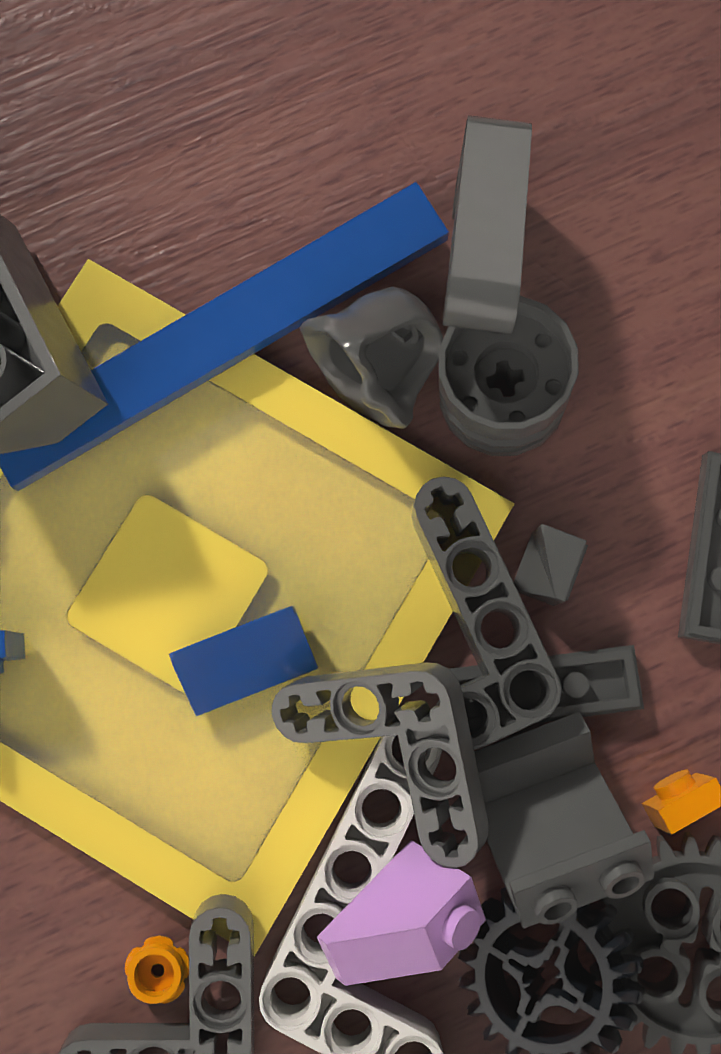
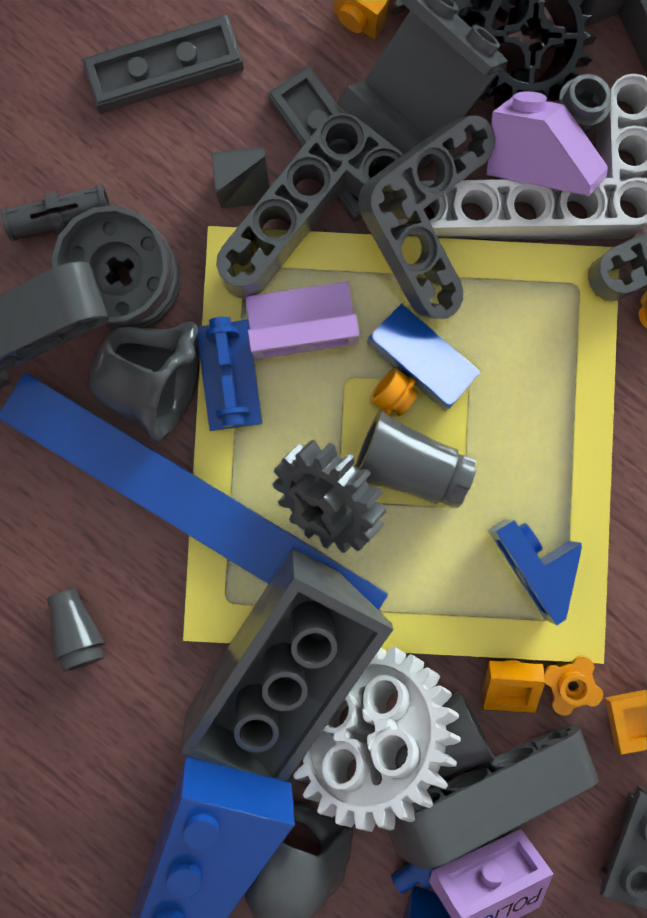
camera: 115 degrees left, 5 degrees up
(131, 584) = (414, 463): none -> dark grey plant
(140, 470) = (329, 496): none -> dark grey gear
(157, 156) = (74, 633): none -> dark grey cone
(221, 605) = (394, 392): none -> light orange plate
(335, 440) = (228, 374): none -> blue hinge
(355, 547) = (301, 320): none -> lavender panel
(435, 1001) = (587, 100): none -> dark grey cone
(616, 314) = (24, 219): none -> dark grey pin

